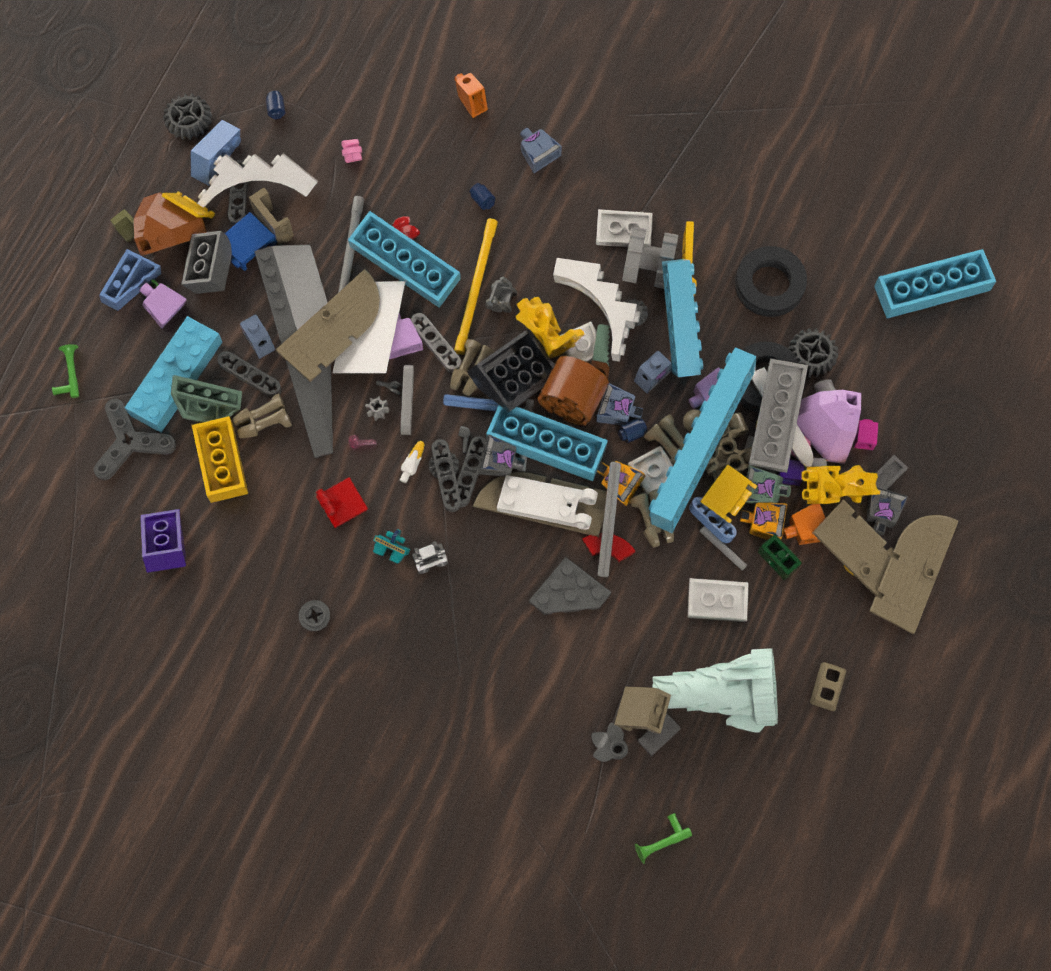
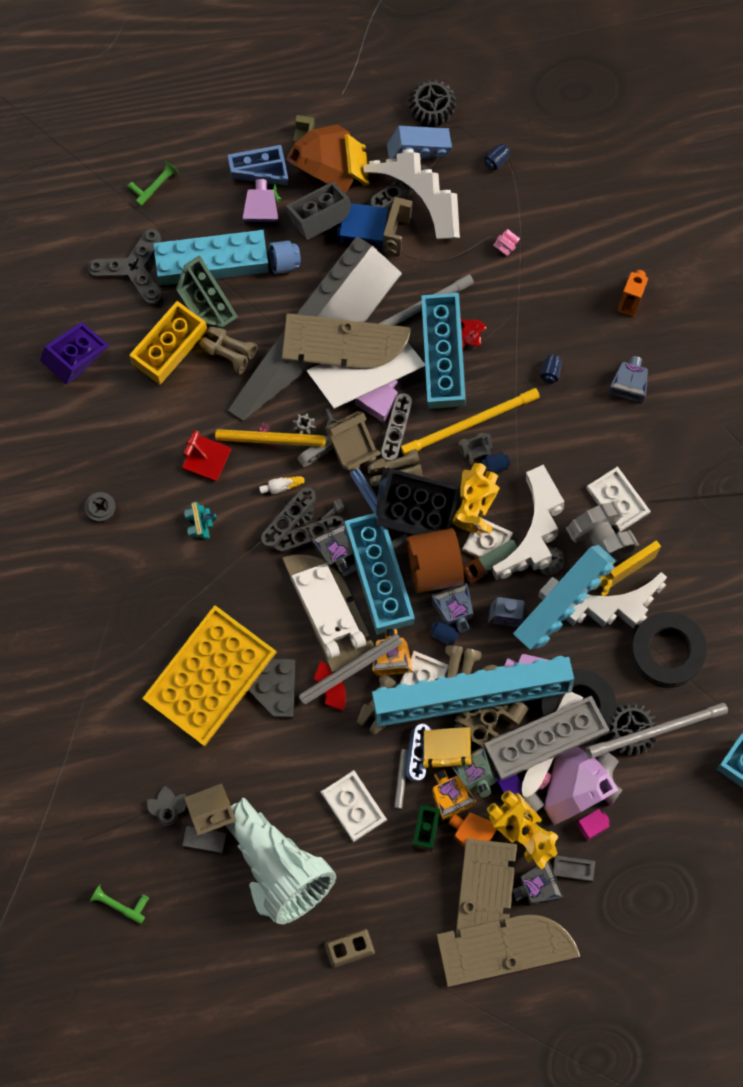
camera: 50 degrees right, 0 degrees up
(222, 318) = (284, 257): none -> medium blue piece
(249, 374) = (257, 311): dark grey beam -> none
(255, 333) = (292, 289): sand blue torso -> none
(370, 437) = (270, 437): none -> yellow axle
(422, 381) = (352, 441): none -> dark tan panel
(429, 556) = (212, 555): piece -> none
(525, 289) = (496, 462): none -> dark blue brick
(528, 631) = (209, 675): none -> yellow plate
(717, 284) = (603, 609): none -> white arch
(819, 379) = (604, 747): none -> light grey piece

